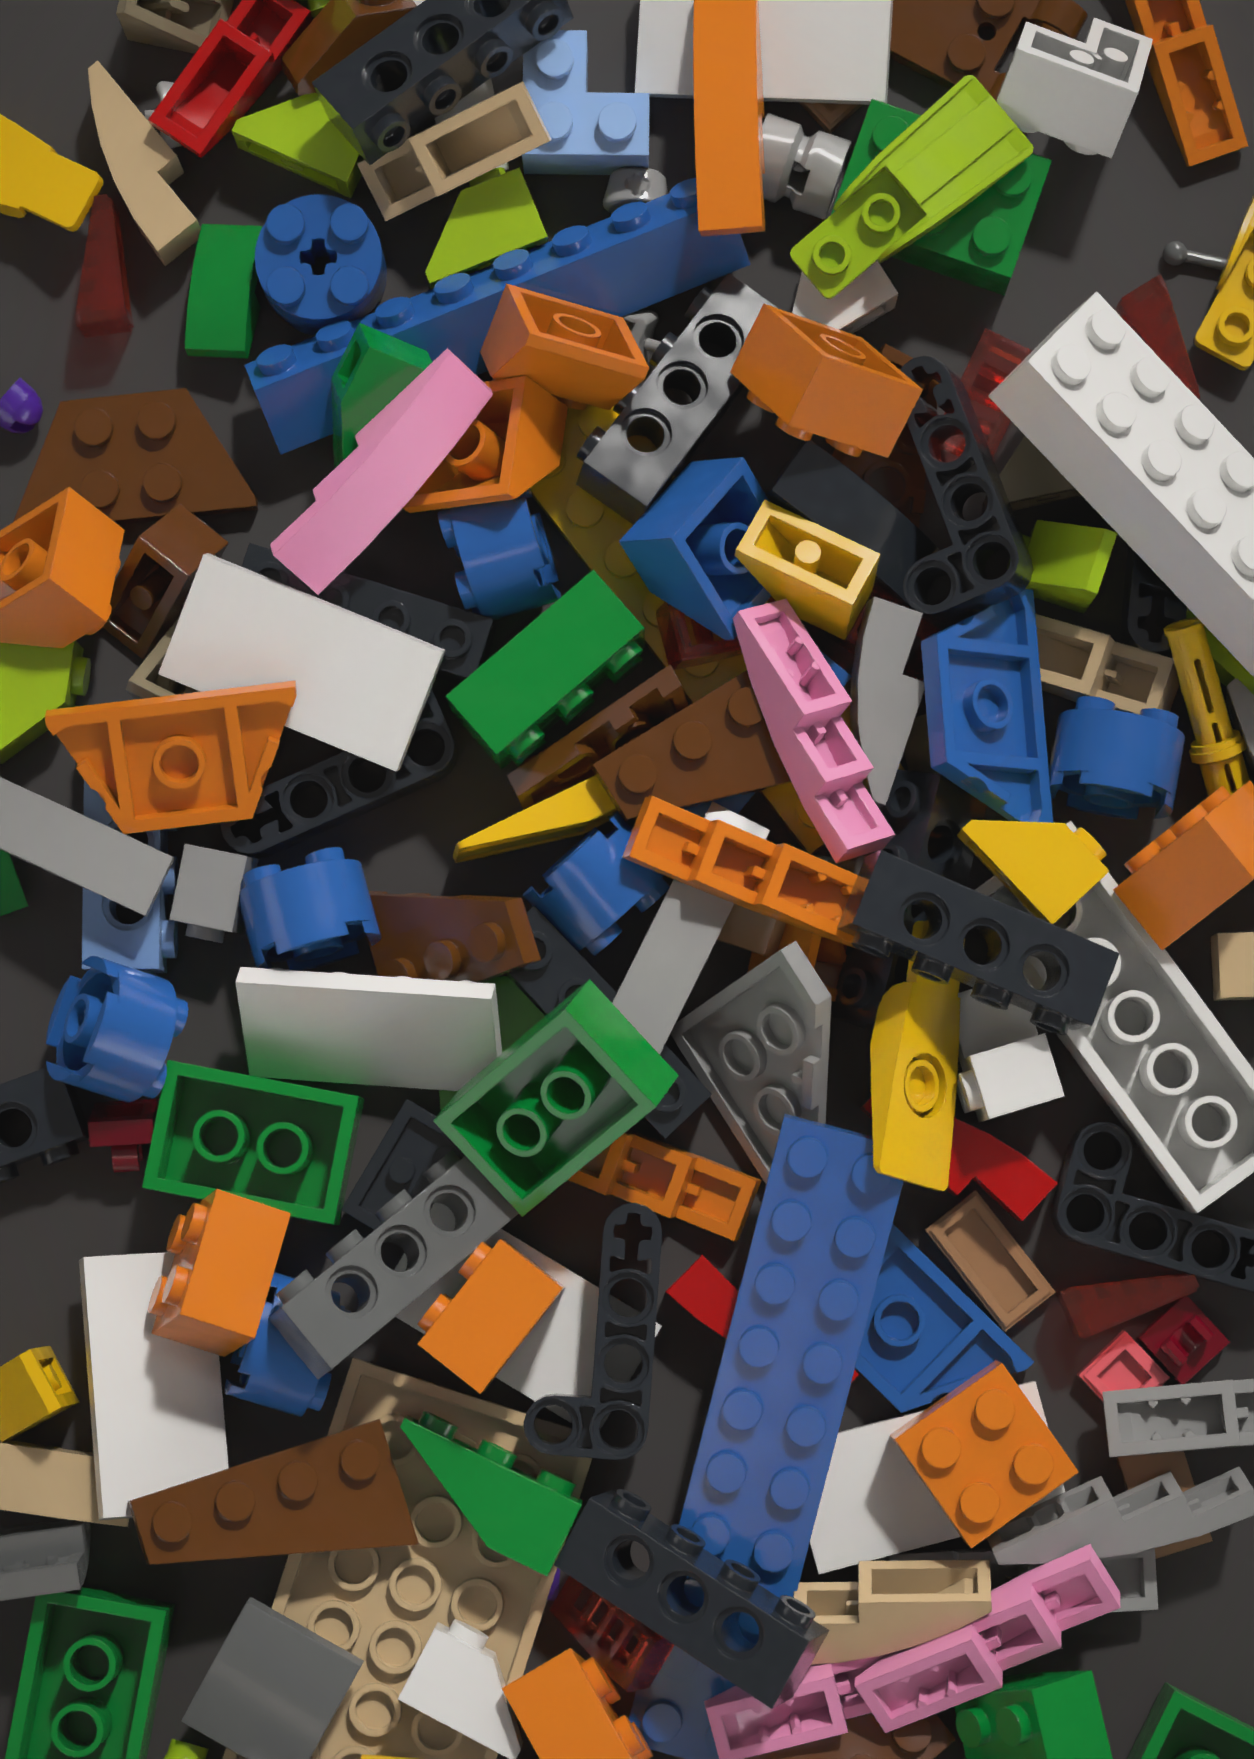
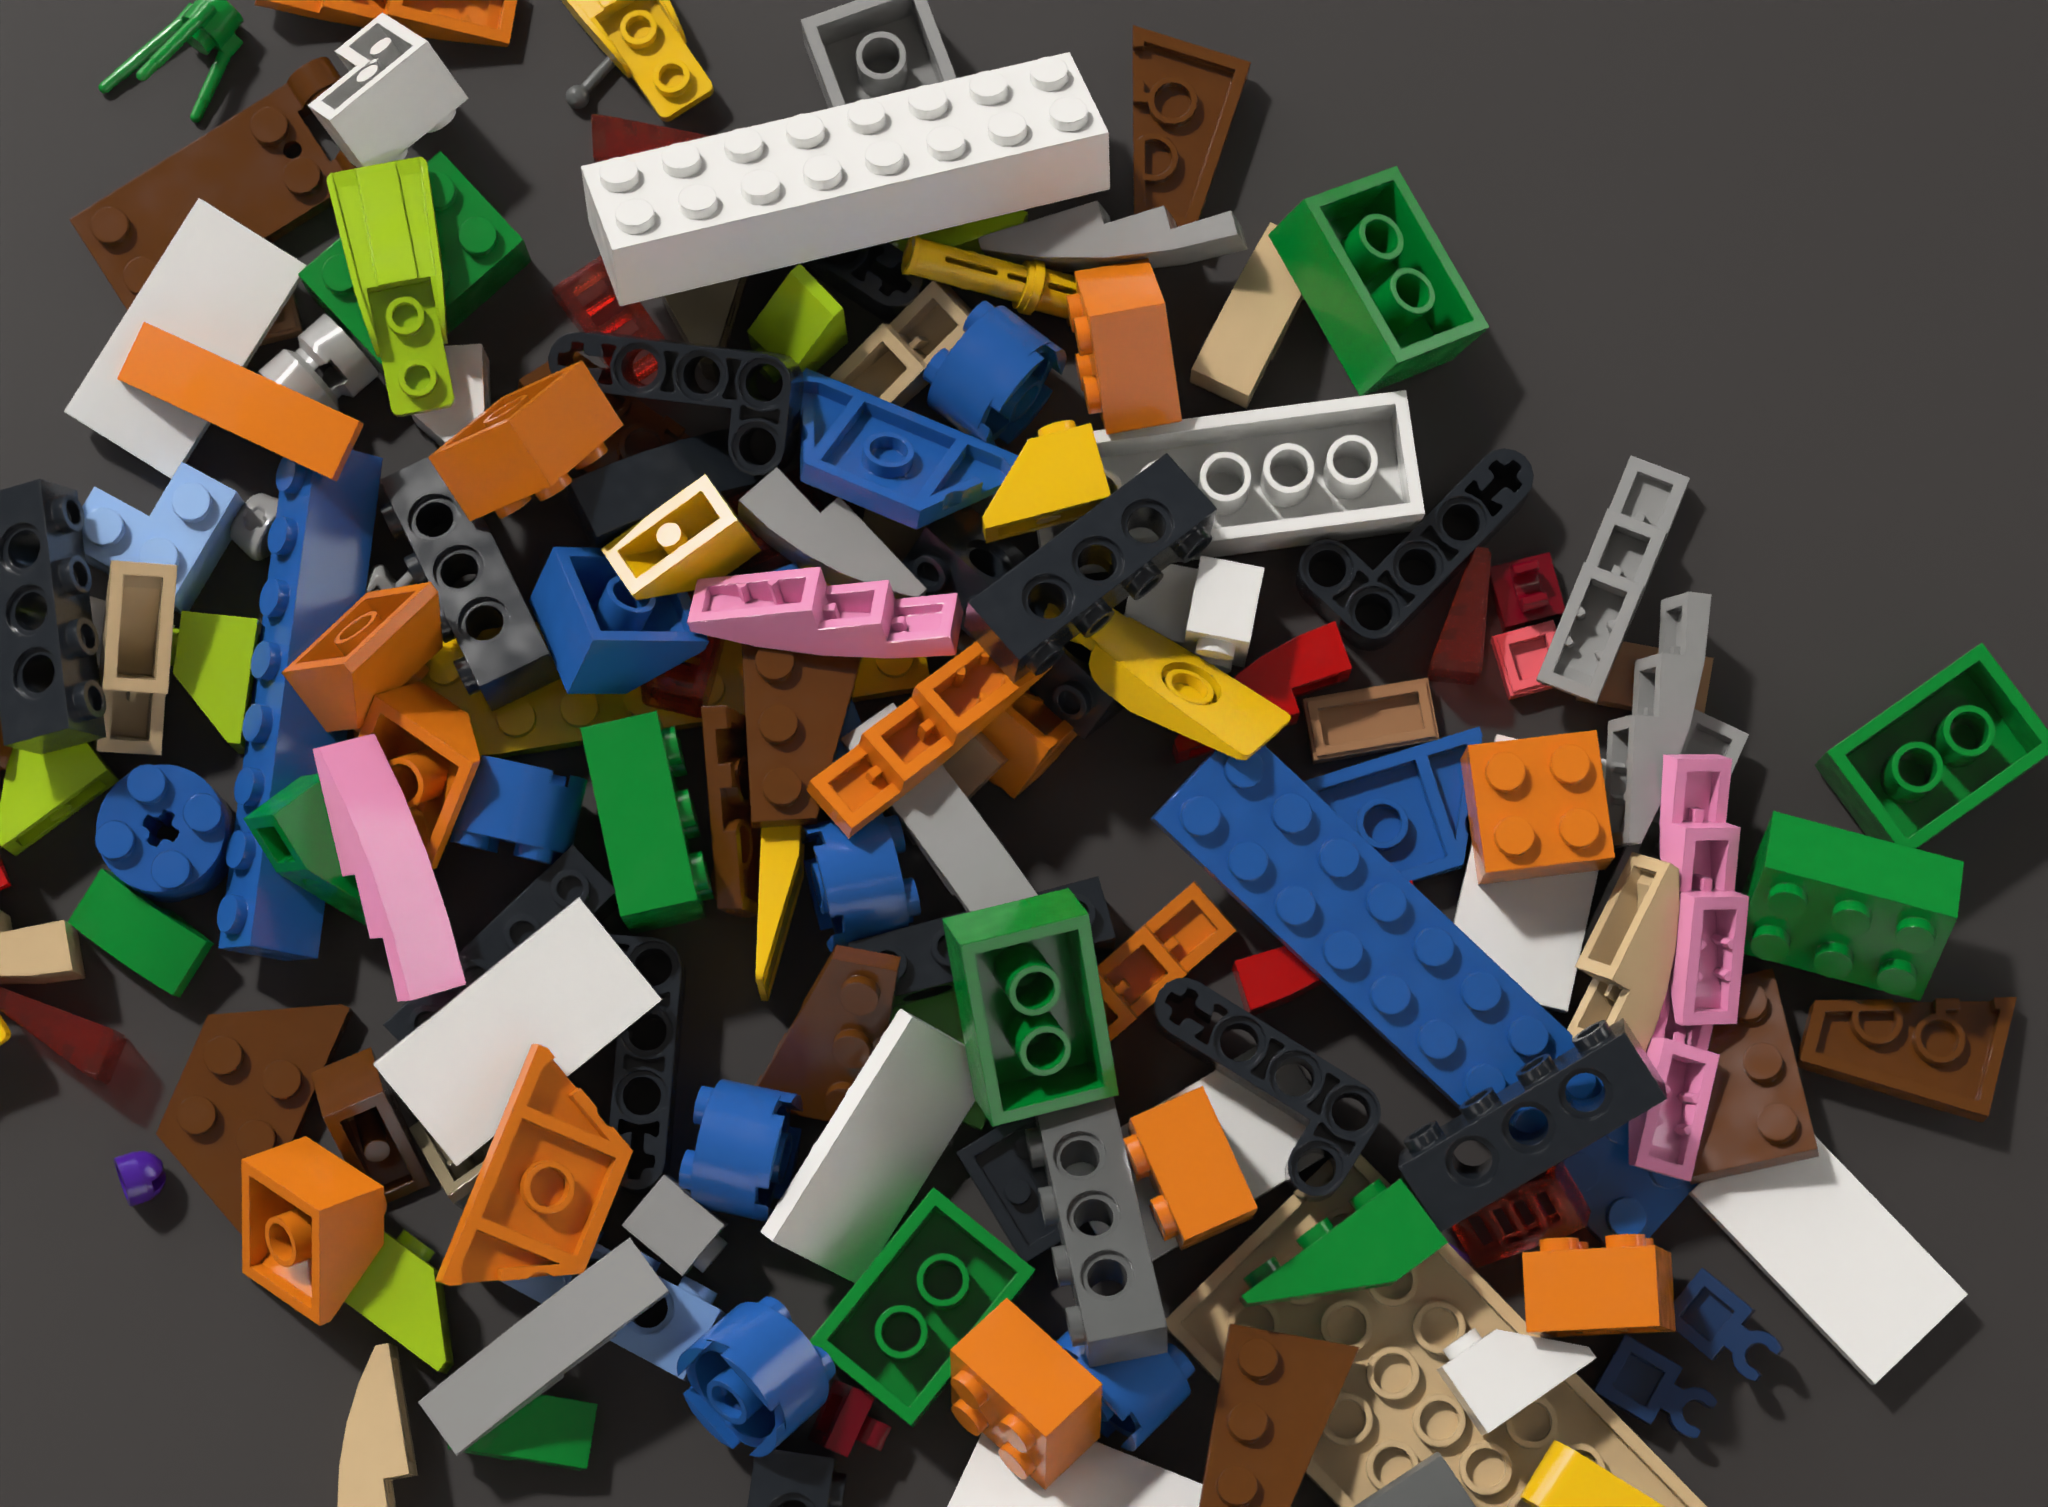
camera: 65 degrees left, 5 degrees down
(763, 1050) = (1086, 811): light grey plate -> none

